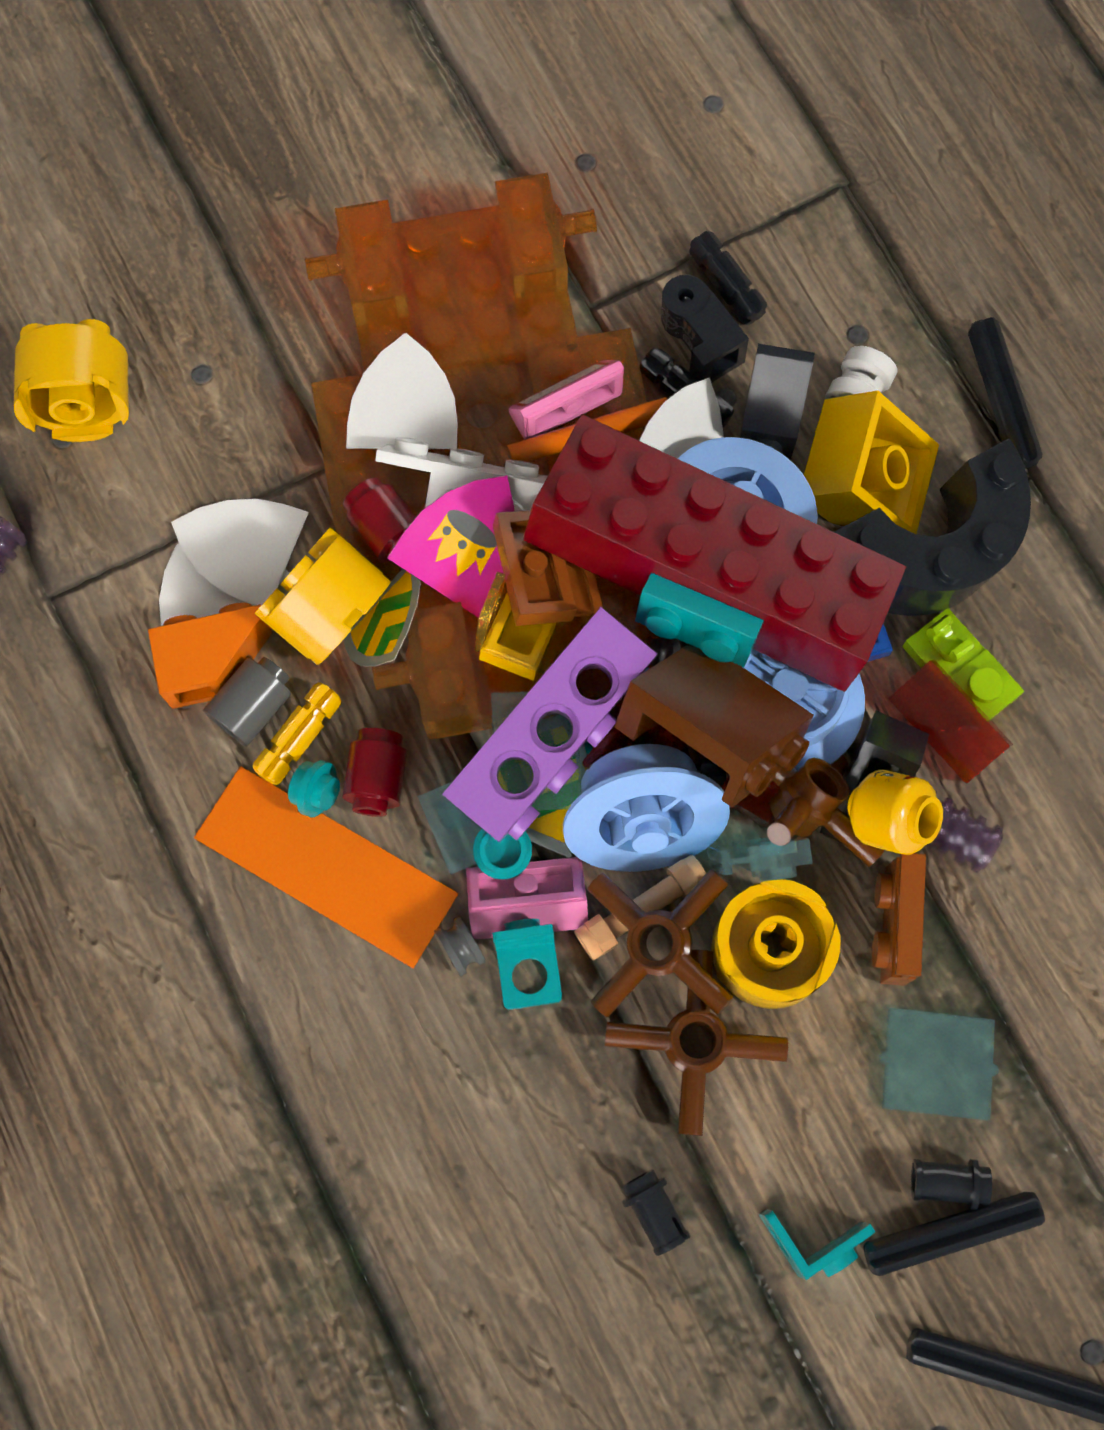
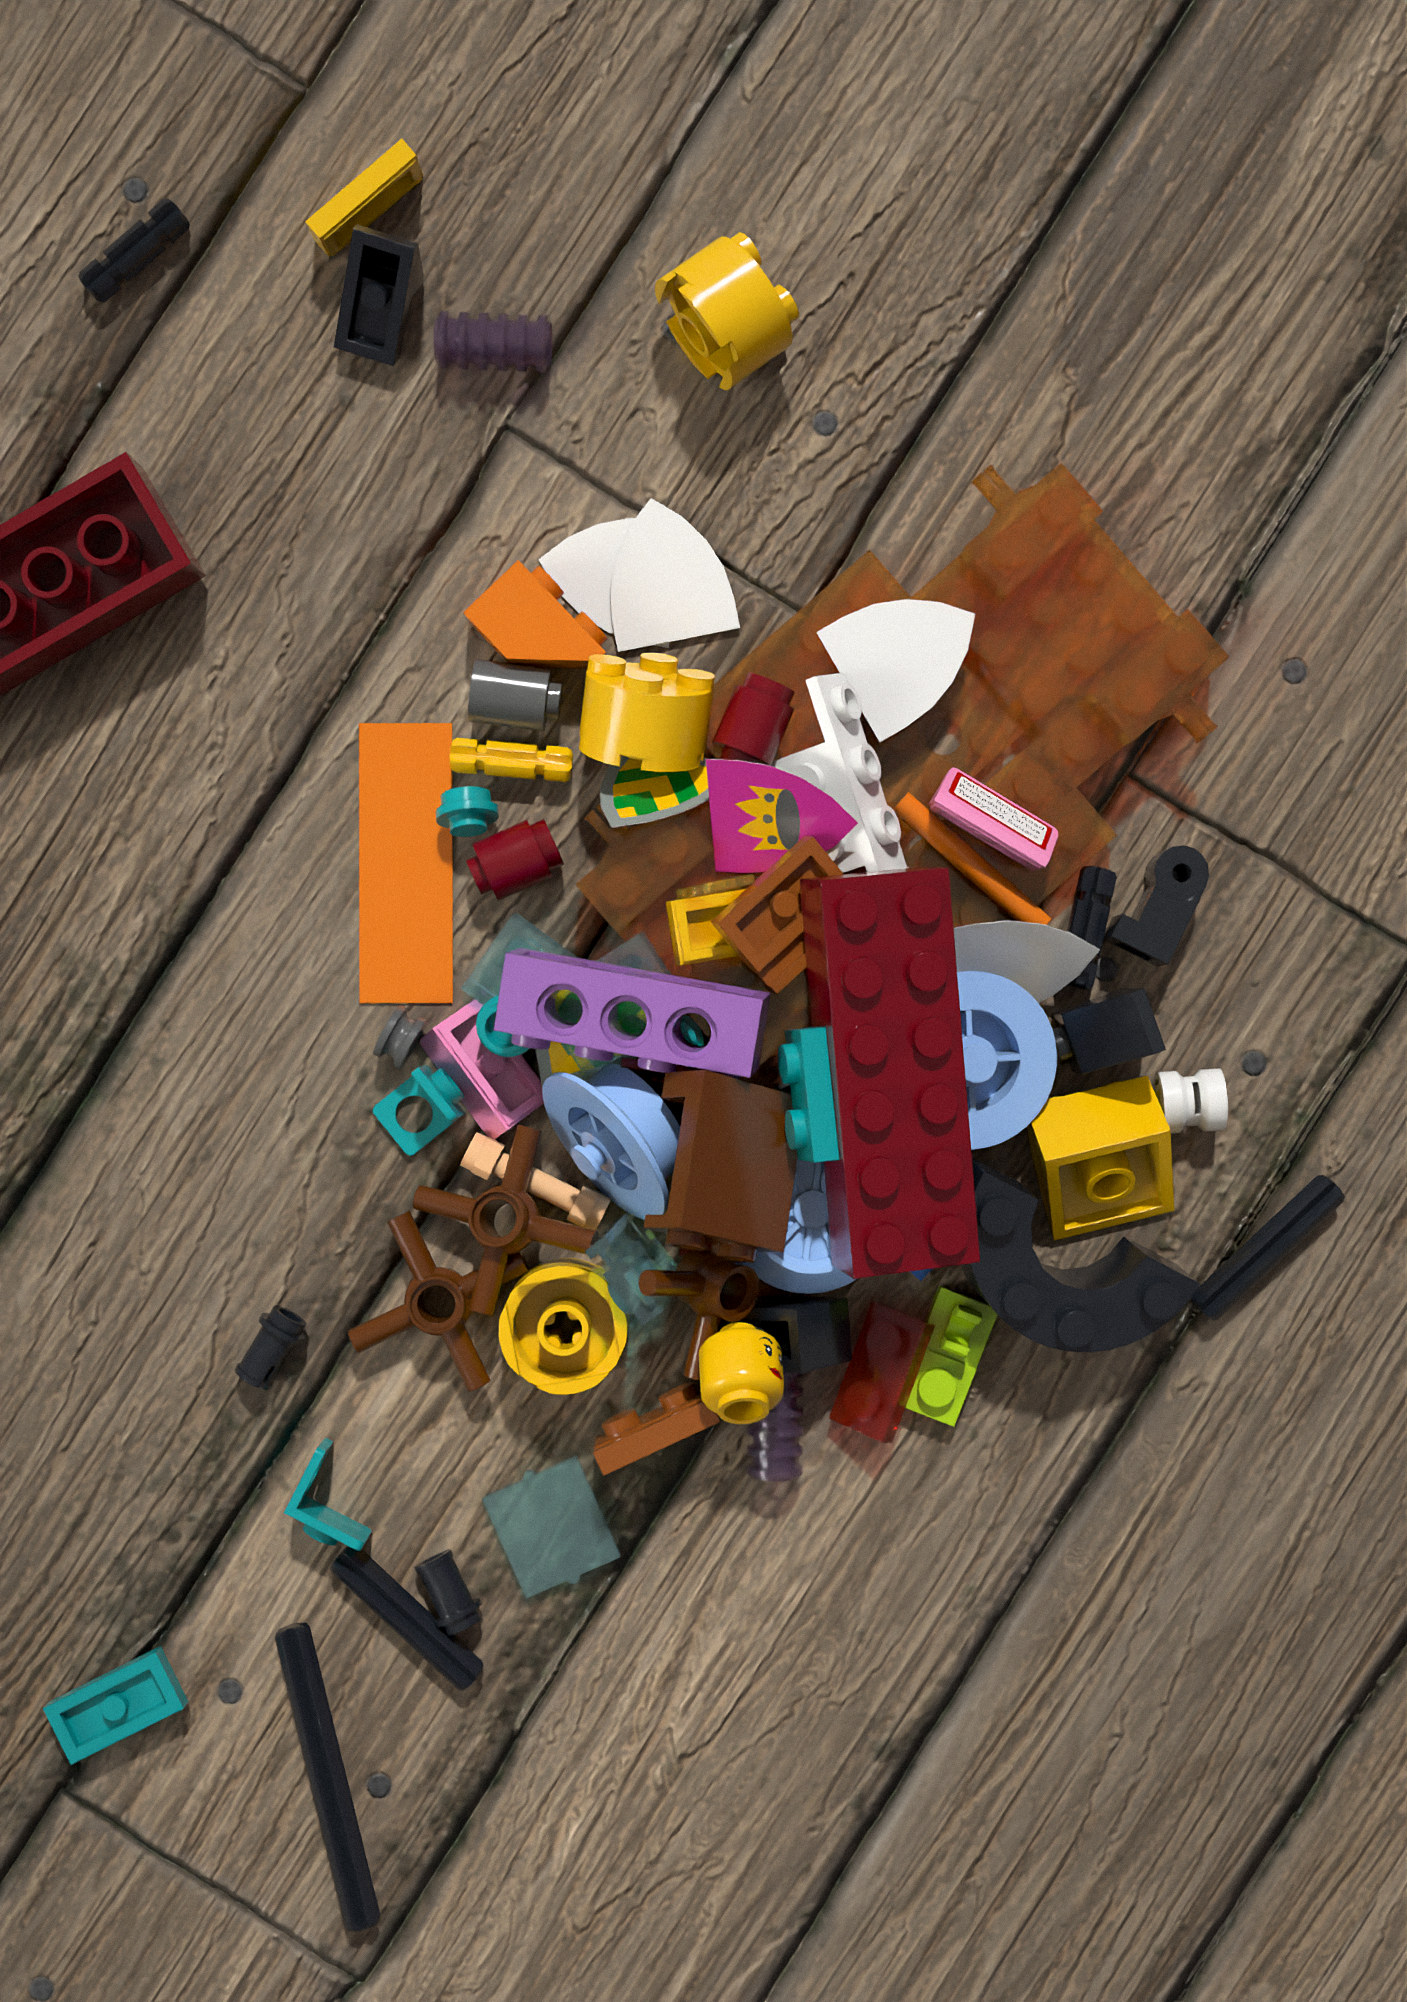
camera: 55 degrees right, 15 degrees up
(727, 277) = (1238, 898): black axle -> none

